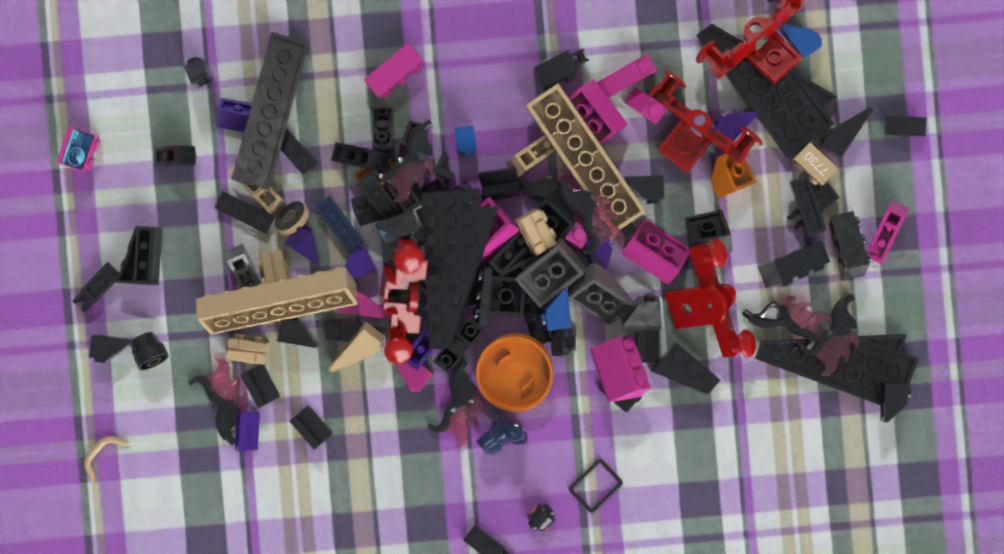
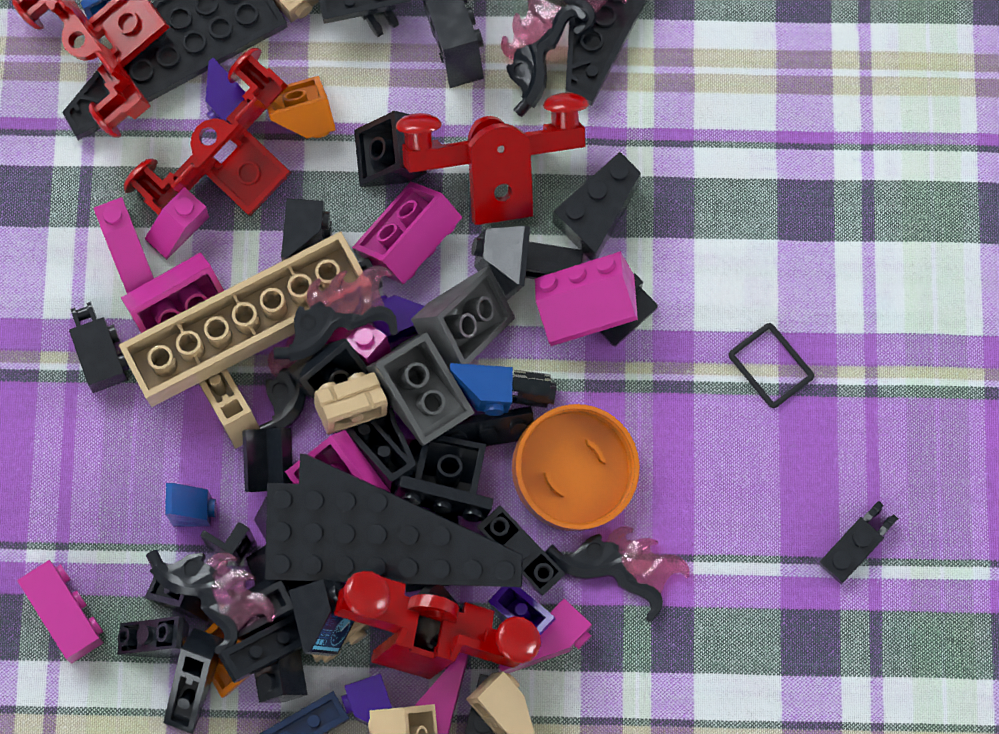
camera: 80 degrees left, 15 degrees down
(500, 435) = (675, 499): dark blue piece -> none
(541, 517) = (815, 453): black head -> none

